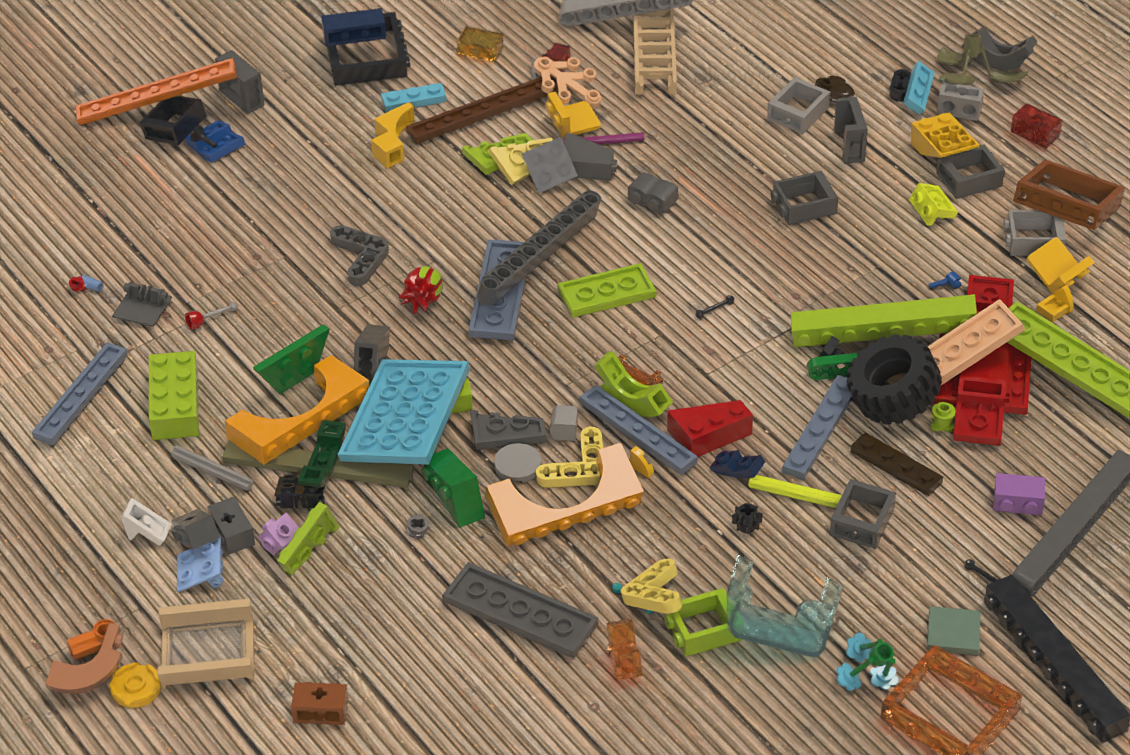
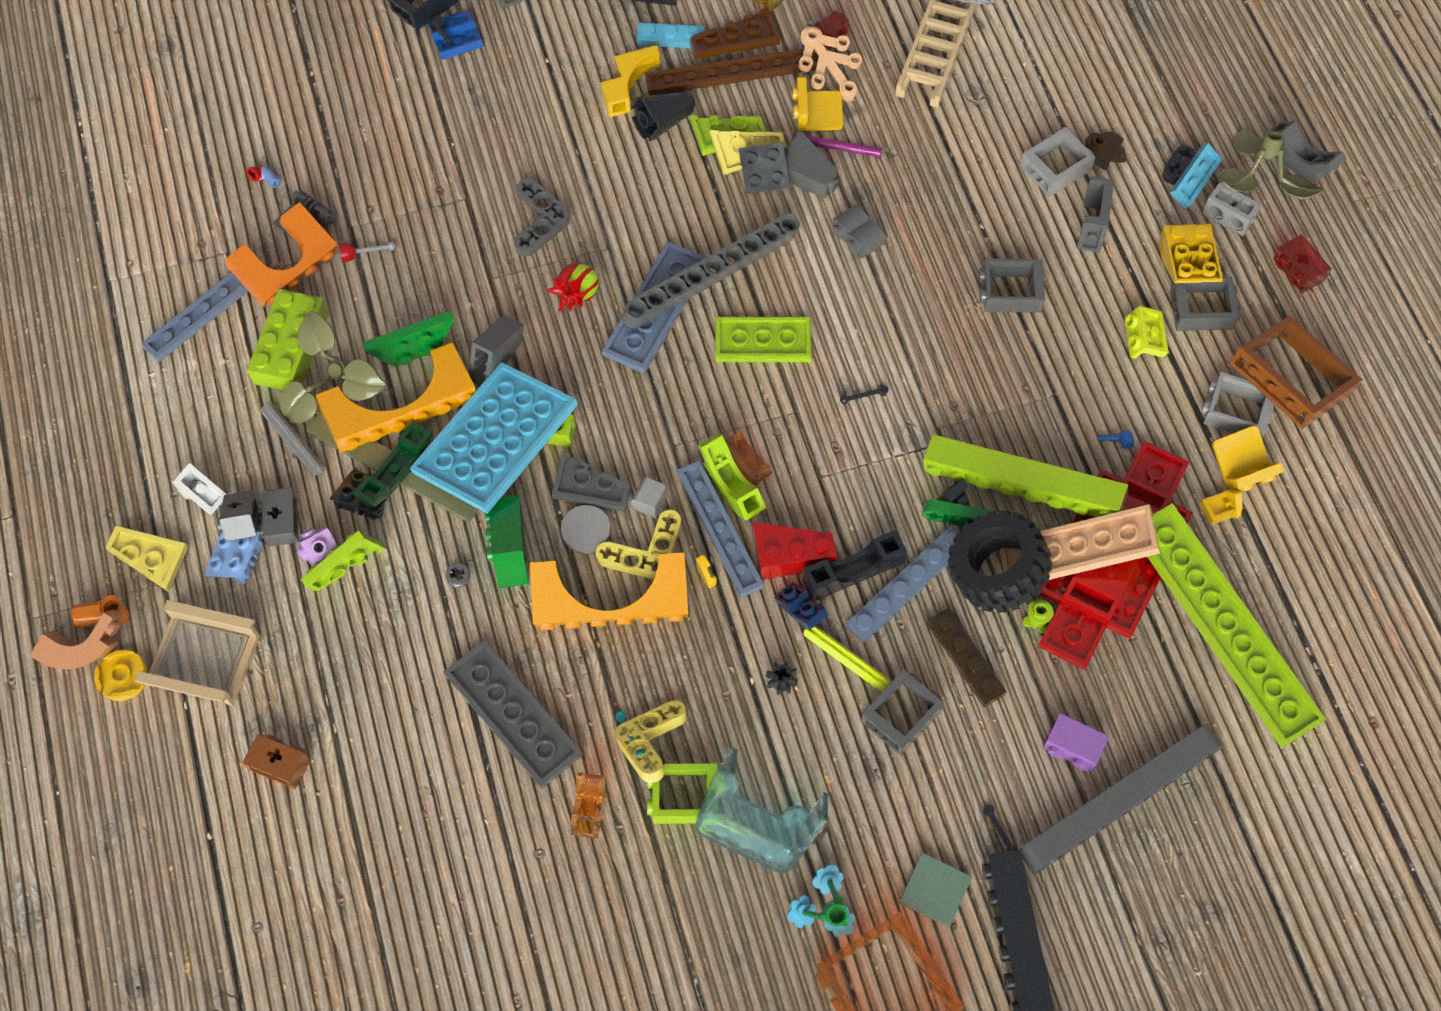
camera: 20 degrees right, 20 degrees up
(117, 587) = (148, 554): none -> light yellow wing
(132, 355) = (263, 281): none -> orange arch
(210, 369) = (360, 377): none -> olive plant
(433, 150) = (660, 112): none -> black cone
(480, 81) = (748, 34): none -> reddish brown wing
(789, 409) = (832, 576): none -> black arch

